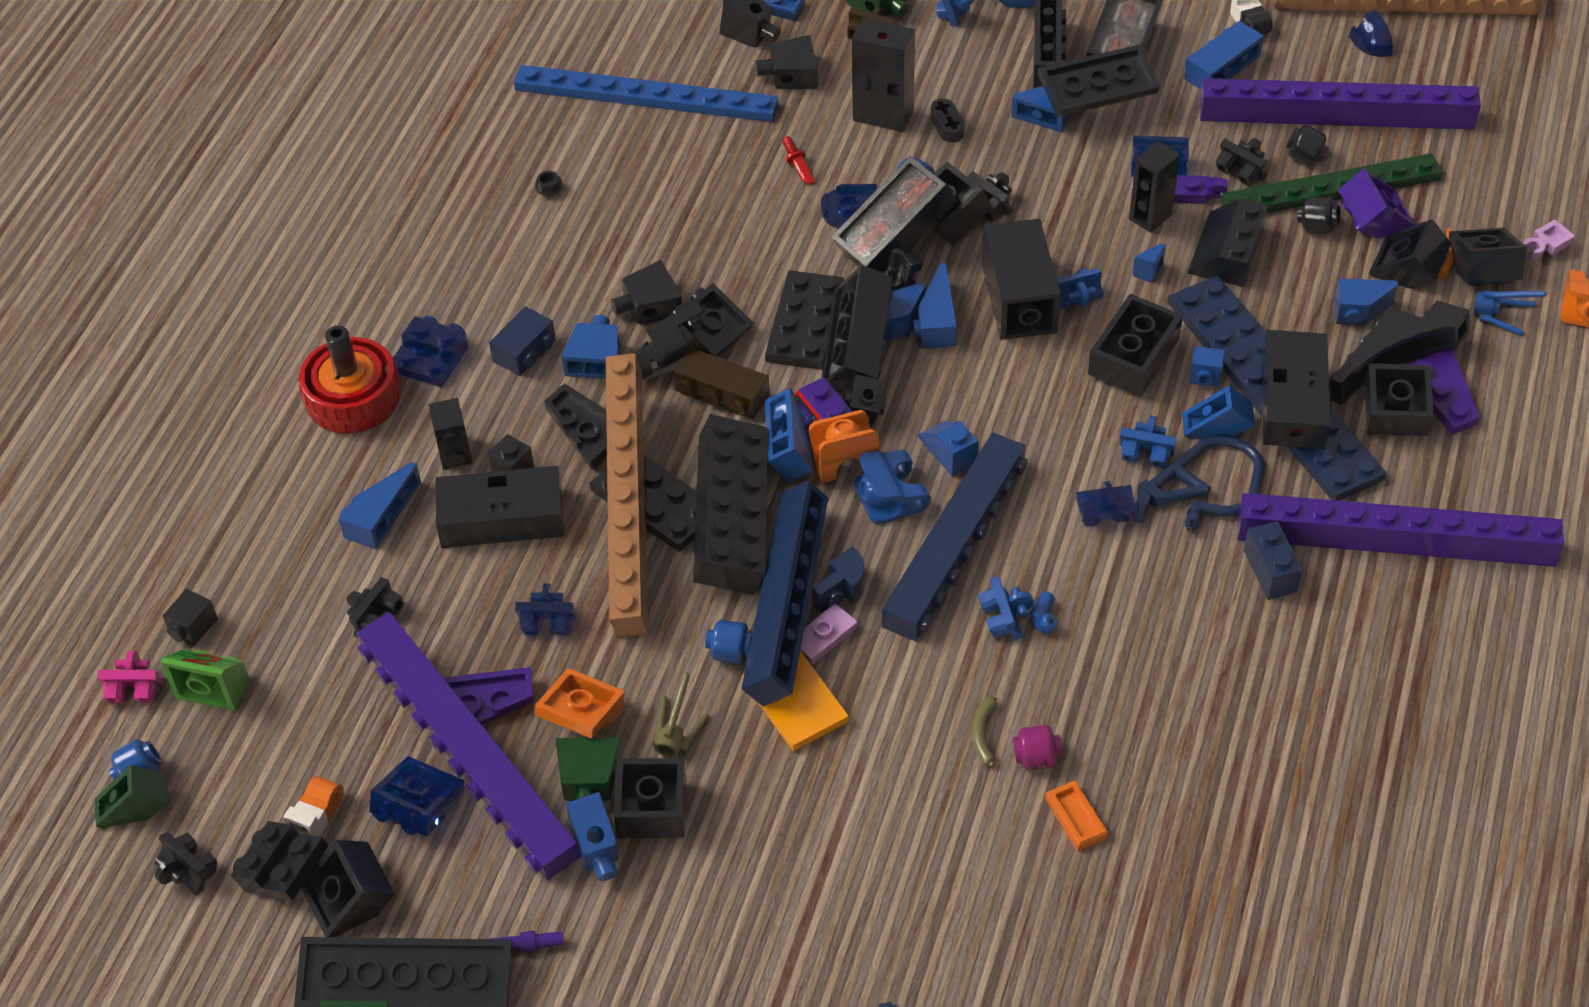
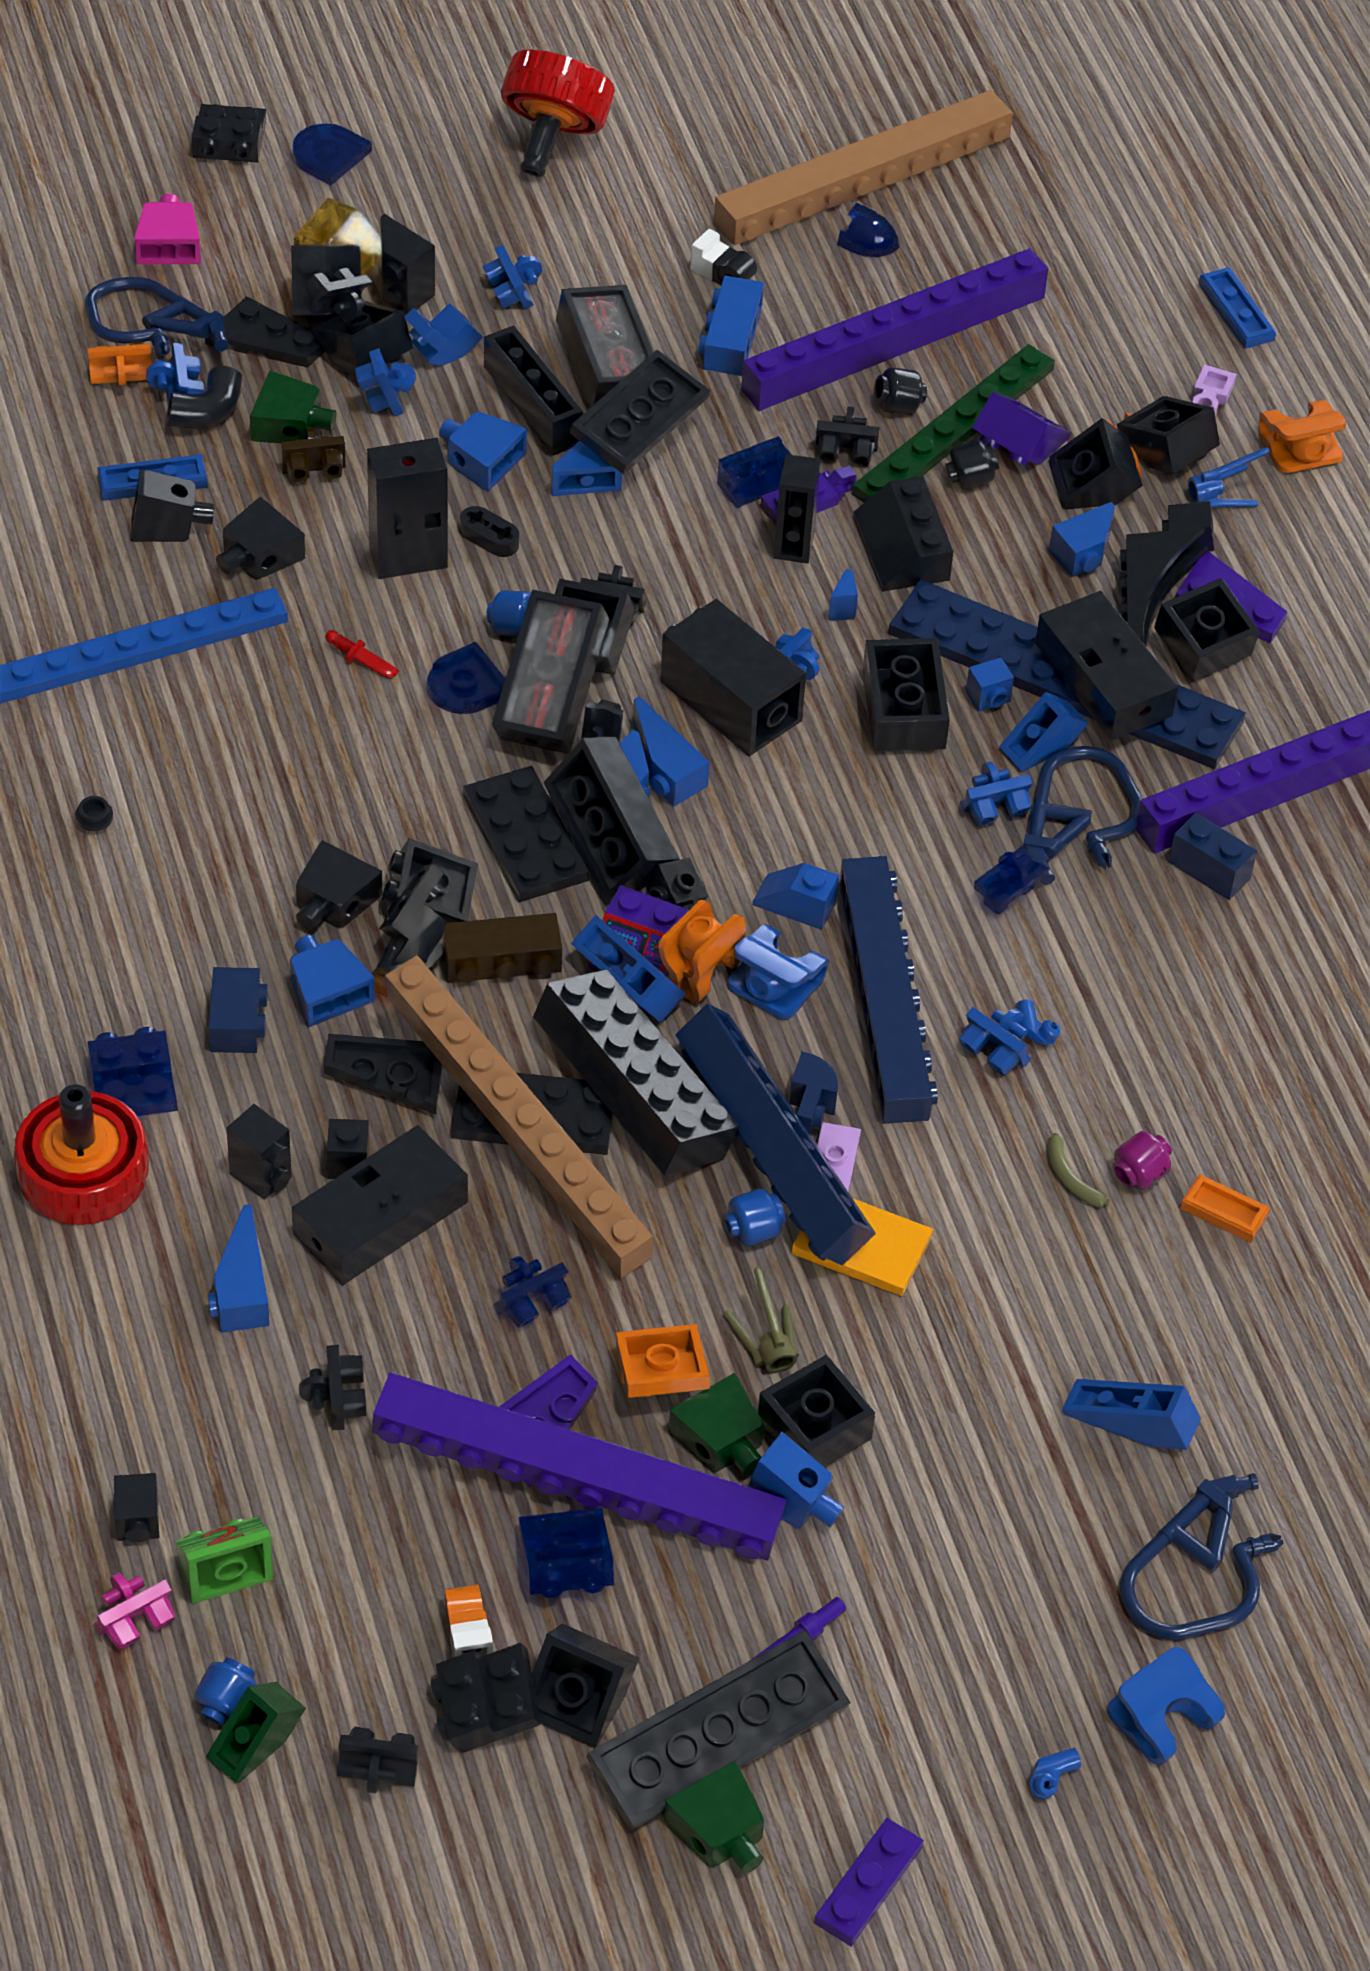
camera: 40 degrees left, 0 degrees up
(881, 924) = (1138, 1411): none -> blue slope
(987, 66) = (484, 447): none -> blue torso

